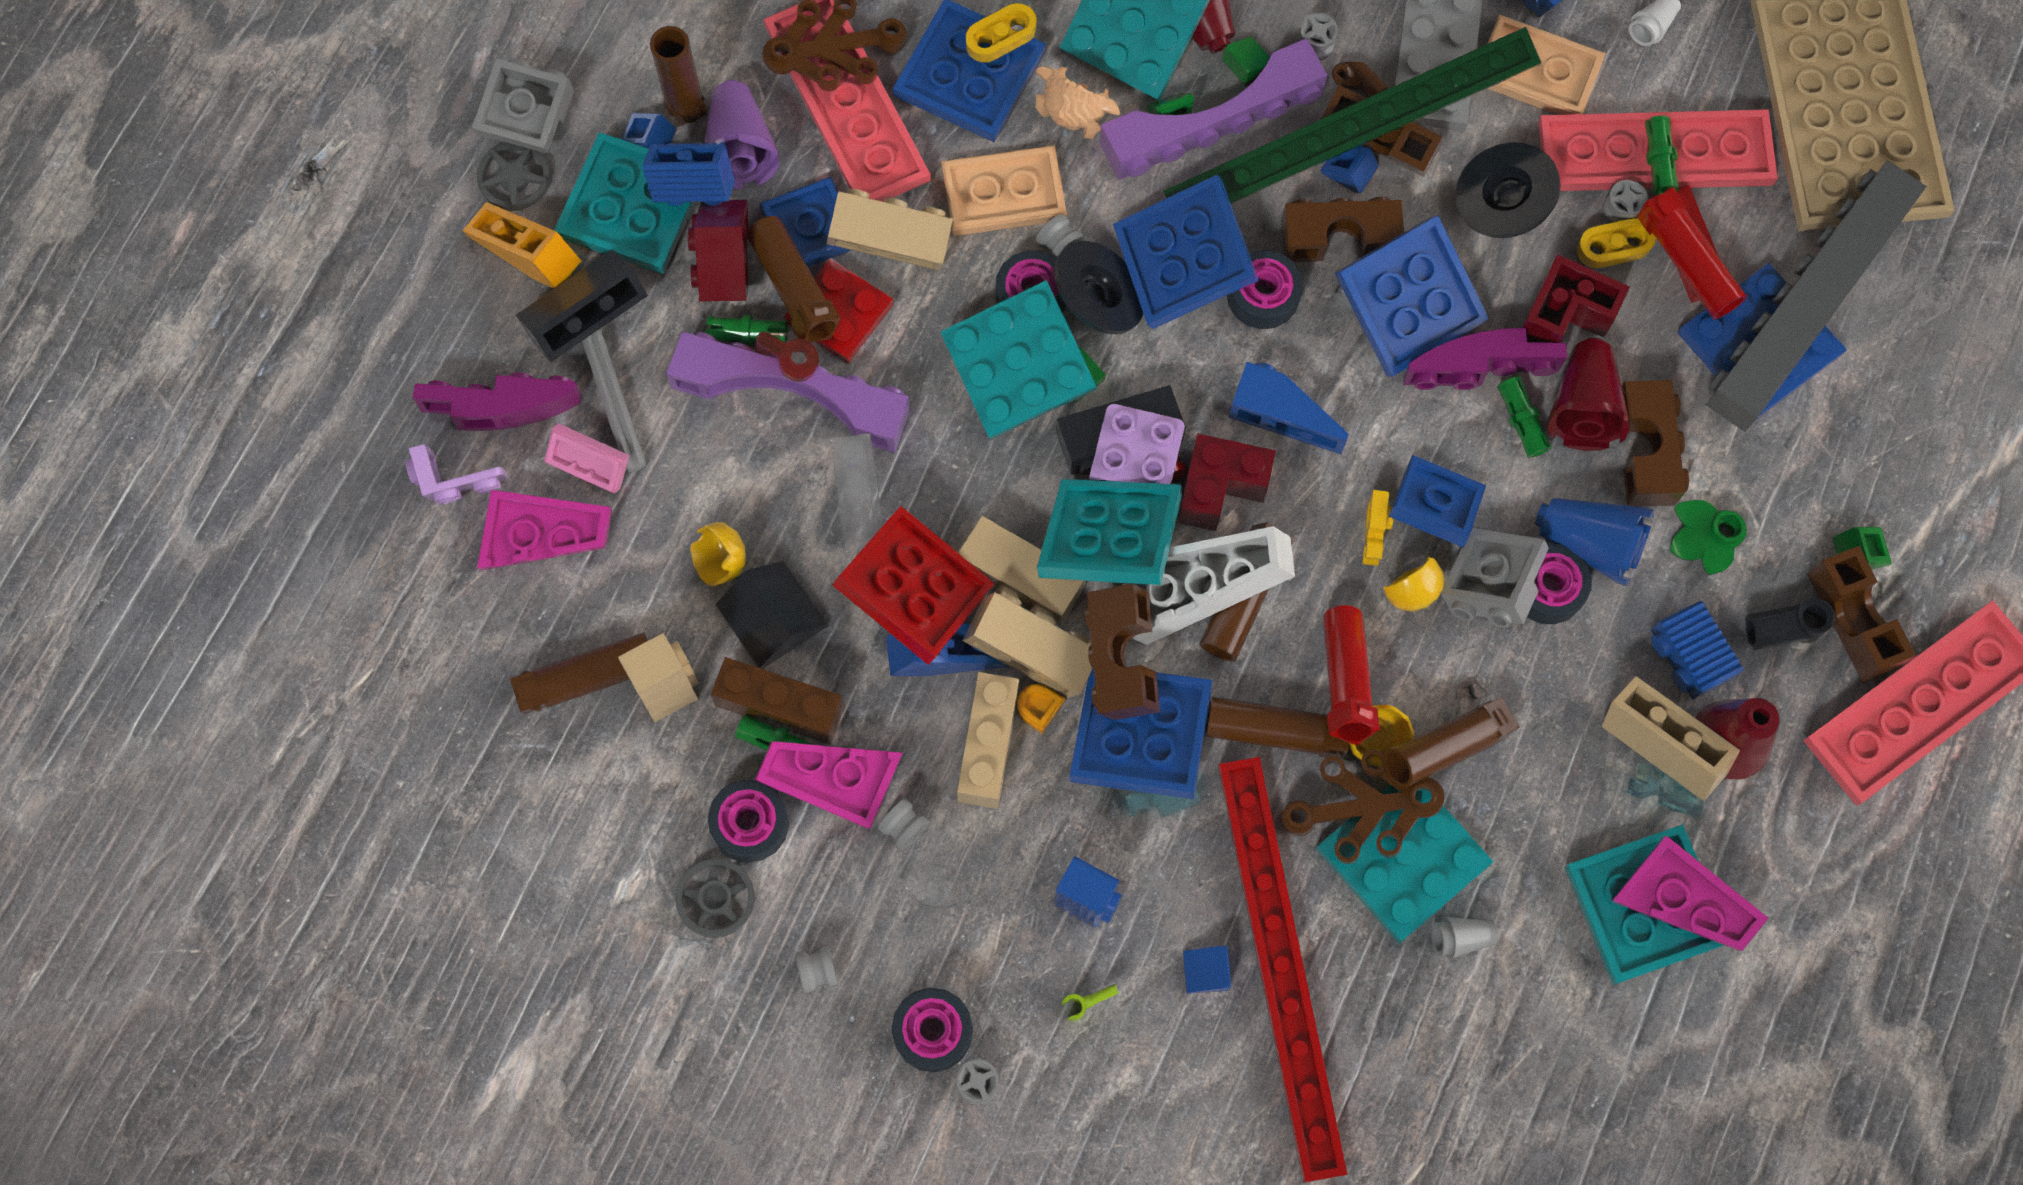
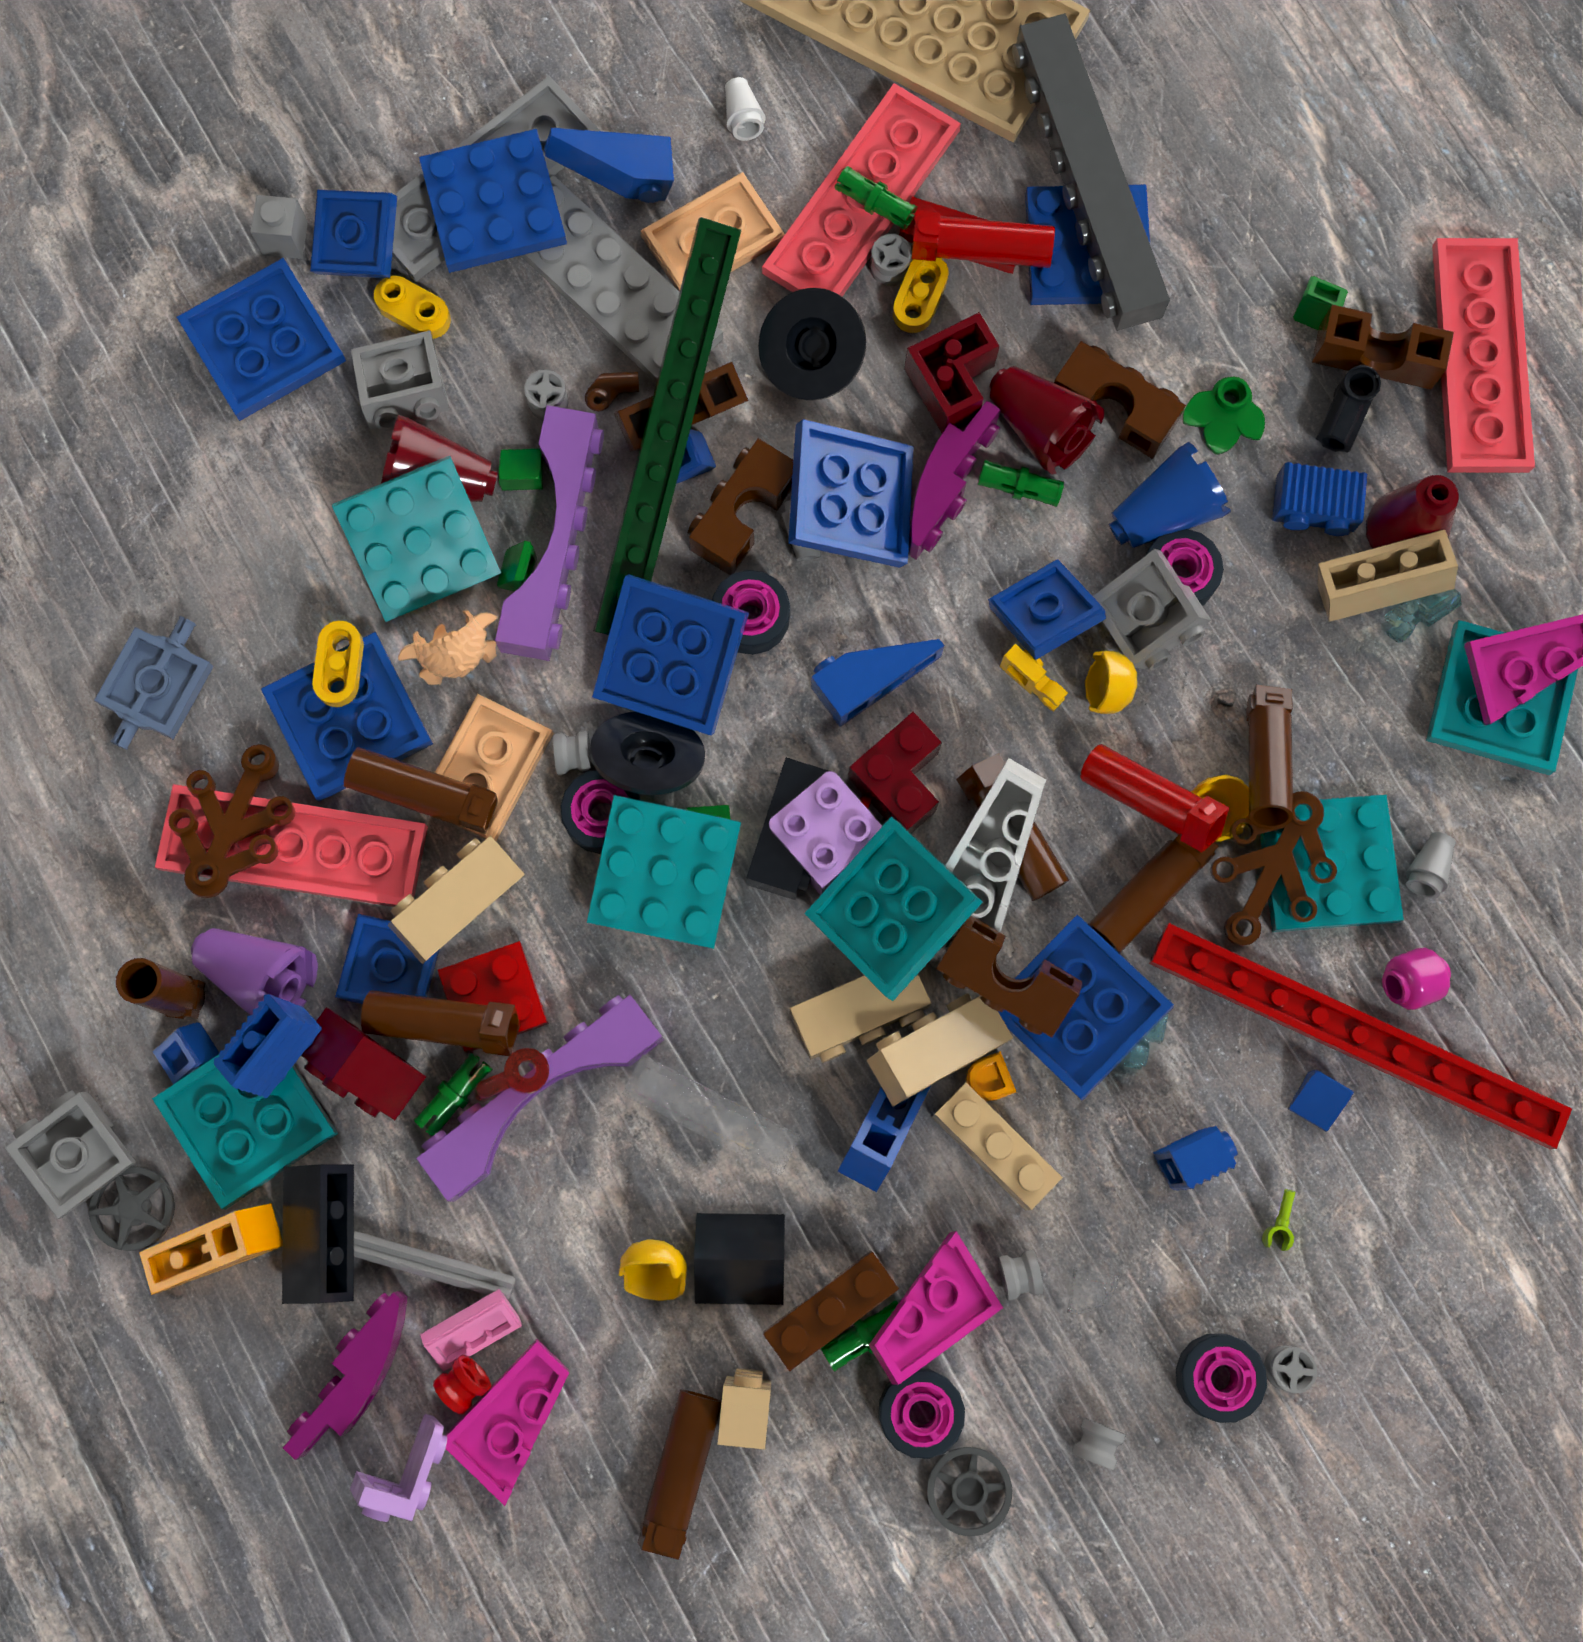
camera: 55 degrees left, 5 degrees up
(543, 477) = (462, 1384): none -> red wheel
(913, 585) = (820, 1117): red plate -> none
(951, 151) = (420, 790): none -> reddish brown piece
(1360, 981) = (1416, 978): none -> dark pink head

